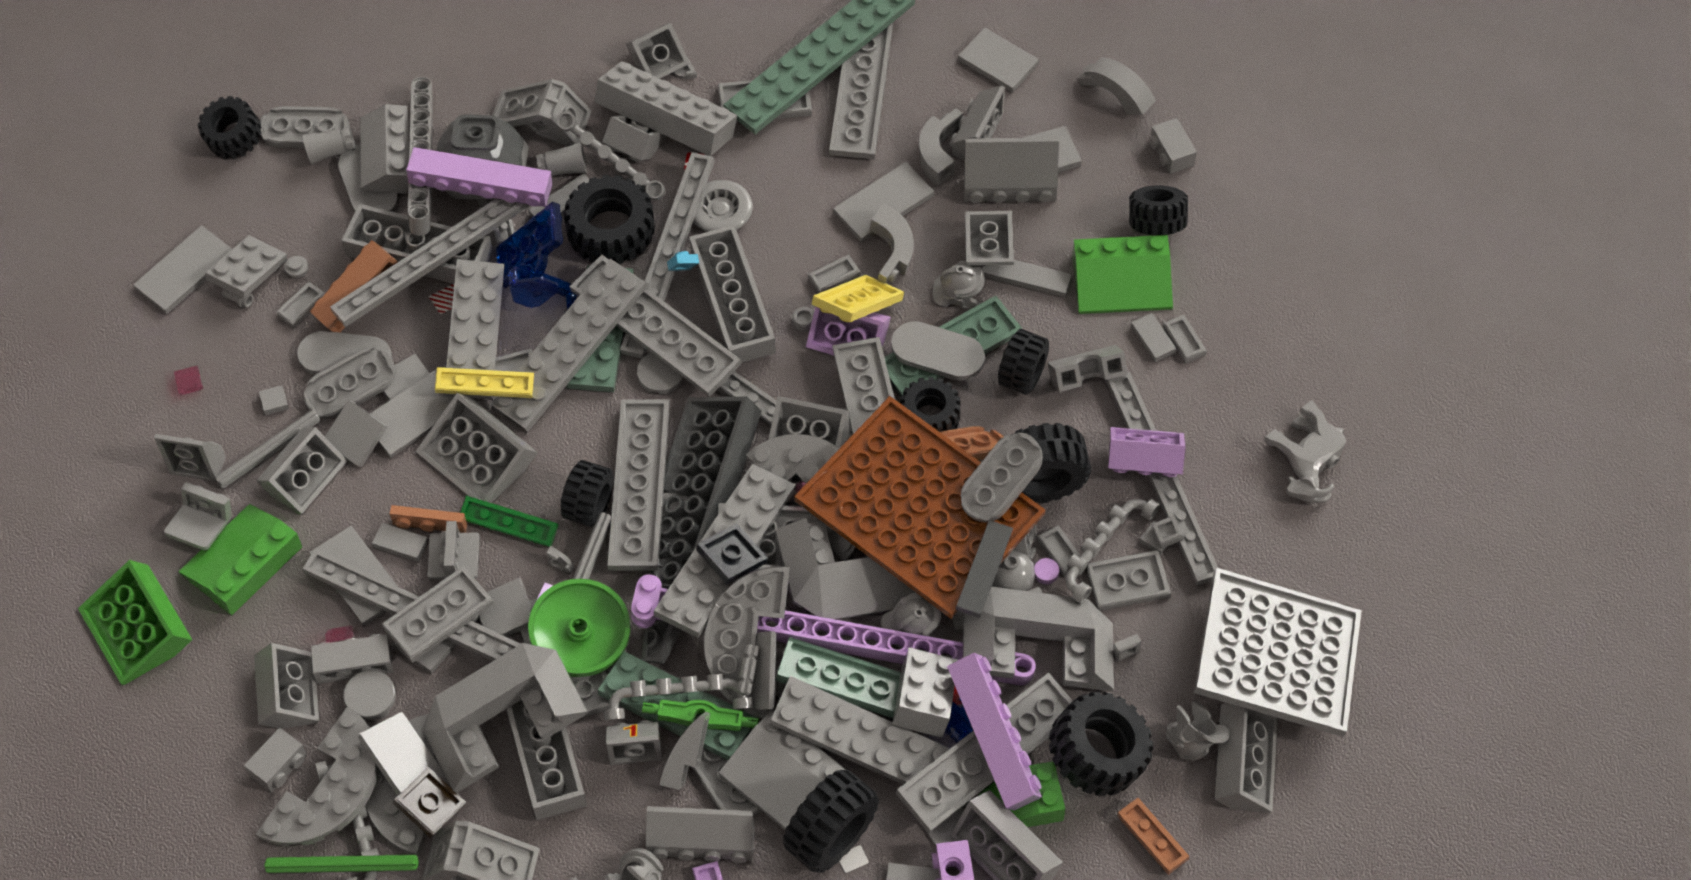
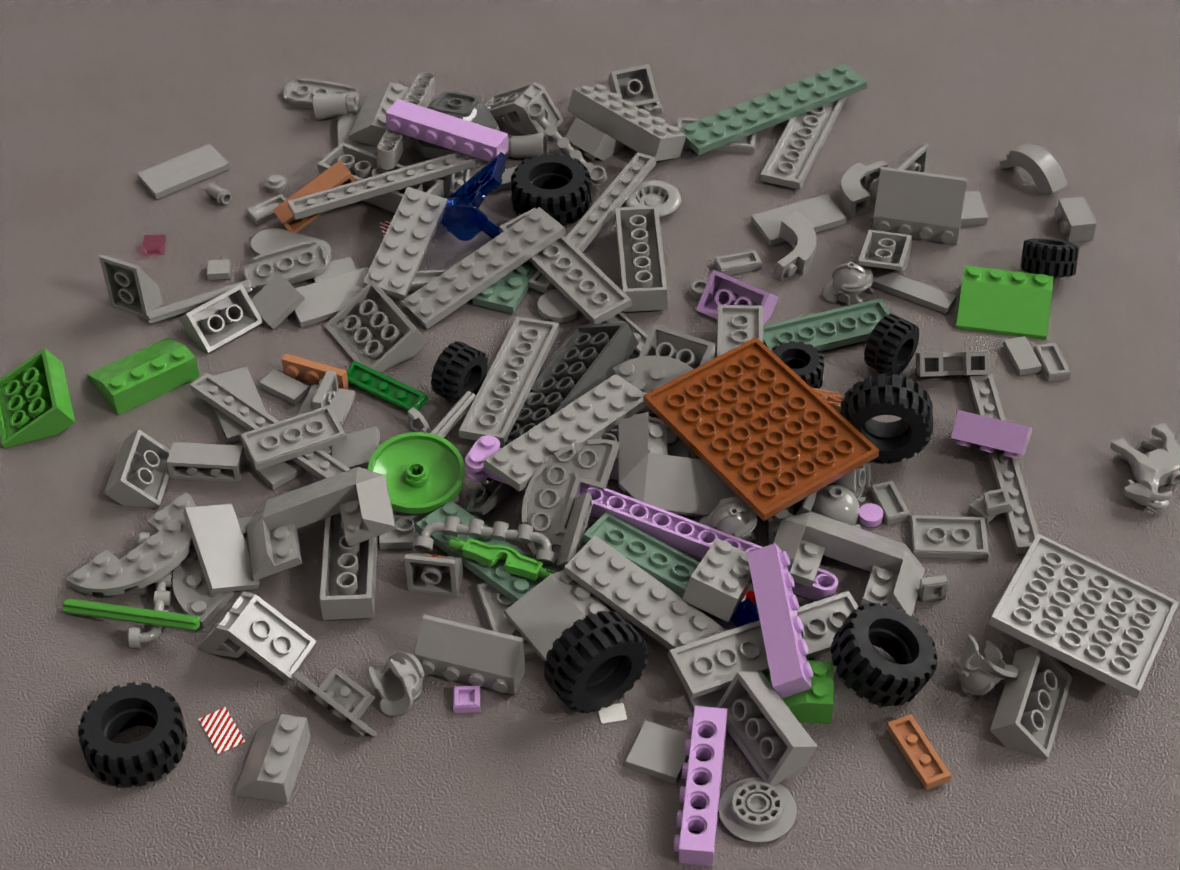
camera: 15 degrees right, 15 degrees down
(200, 517) = (125, 336): light grey bracket -> none
(222, 114) = (258, 82): black tyre -> none
(246, 266) = (233, 174): light grey plate -> none
(275, 760) = (107, 524): light grey brick -> none
(339, 633) = (204, 439): clear pink tile -> none
(370, 694) = (212, 489): light grey tile -> none
(429, 802) = (227, 578): tile -> none
(484, 382) = (400, 279): light yellow tile -> none
(682, 261) = (603, 224): medium azure plate -> none
(685, 753) = (479, 584): light grey slope -> none
(731, 553) = (569, 426): plate -> none
(747, 670) = (557, 526): light grey axle -> none
(857, 298) = (751, 274): light yellow plate -> none
(938, 350) = (815, 327): light grey tile -> none
(984, 569) = (805, 483): dark grey tile -> none
(998, 59) = (941, 141): light grey tile -> none
(1001, 477) = (841, 410): light grey tile -> none
(1105, 532) = (934, 491): light grey bar -> none

